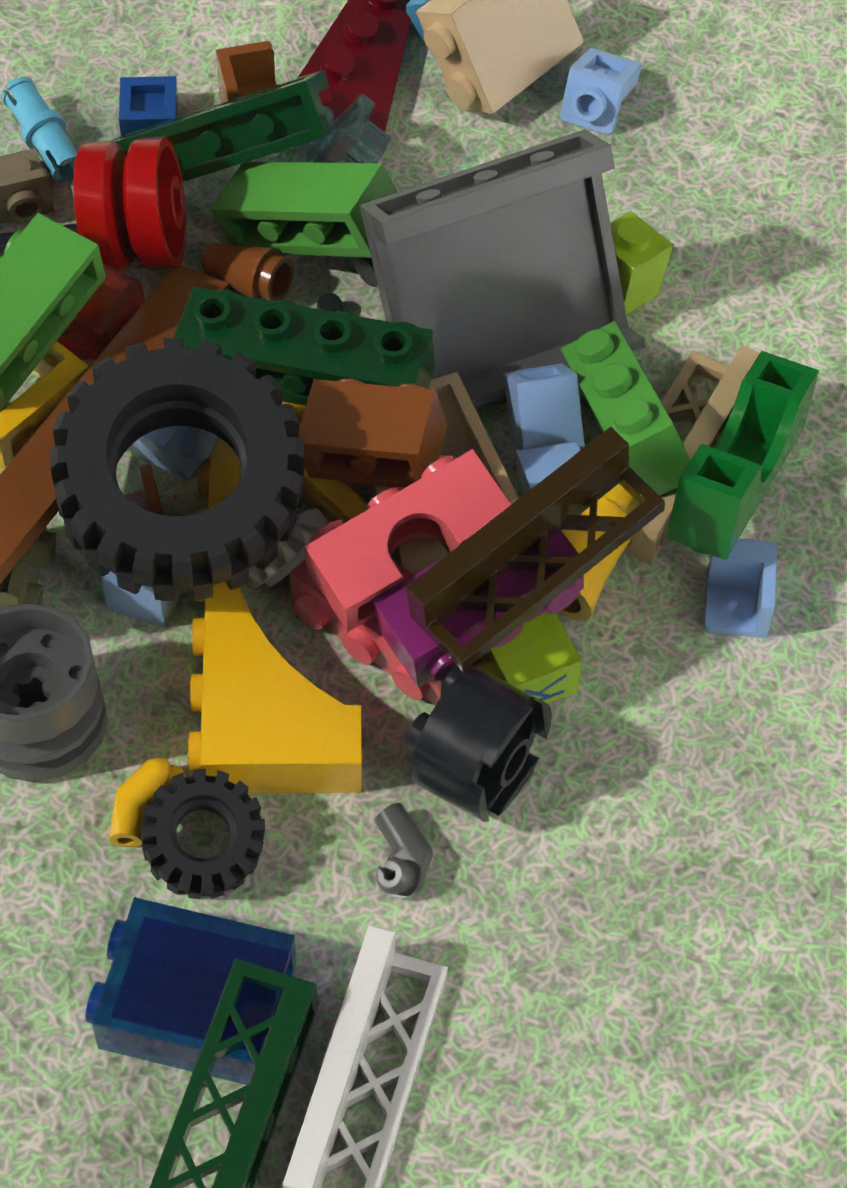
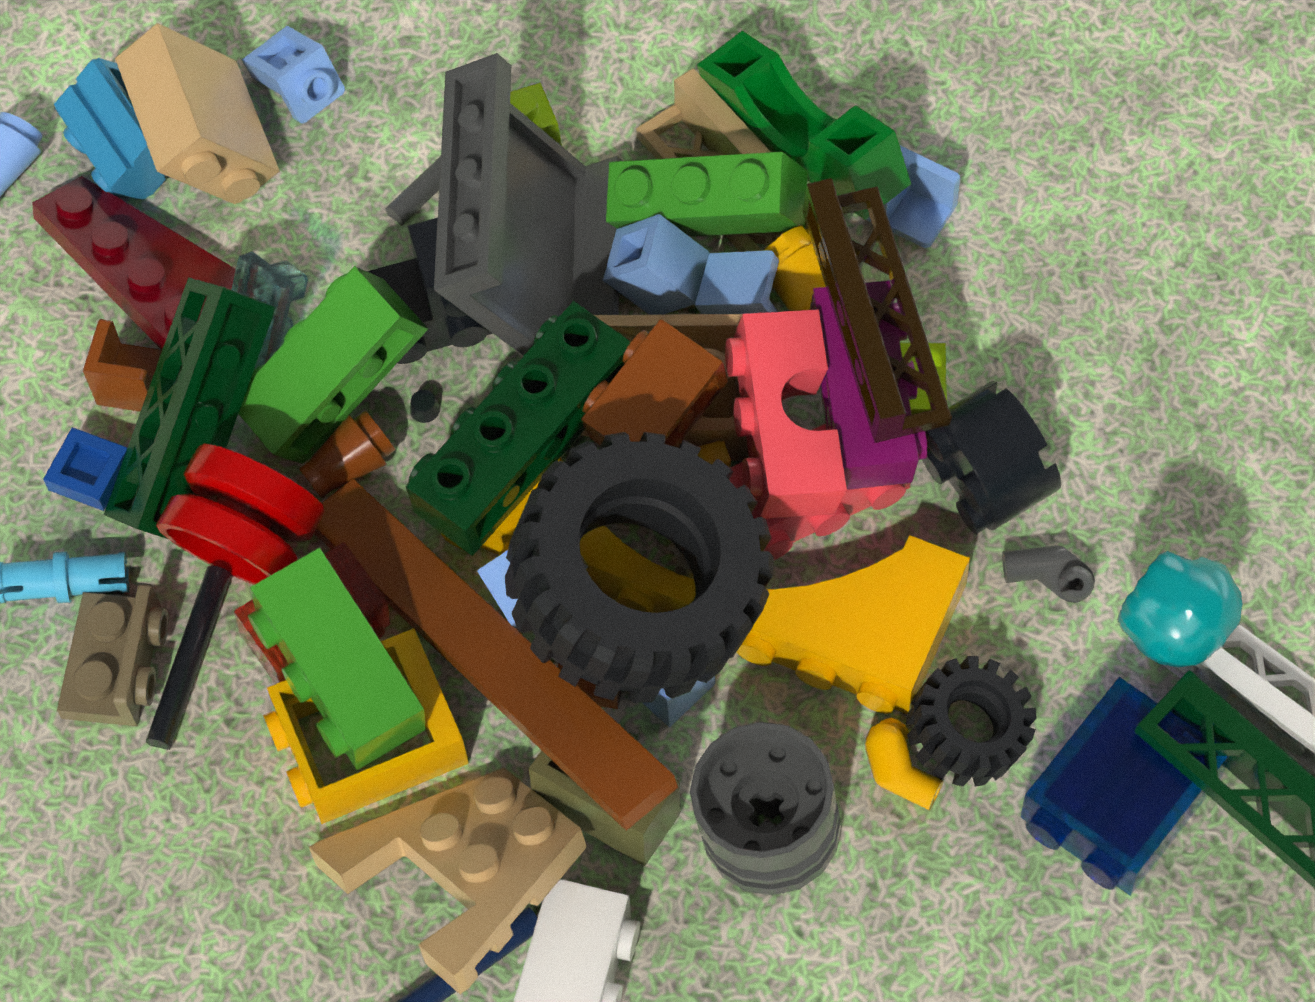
camera: 60 degrees left, 5 degrees up
(362, 945) = (1181, 610): none -> teal hair

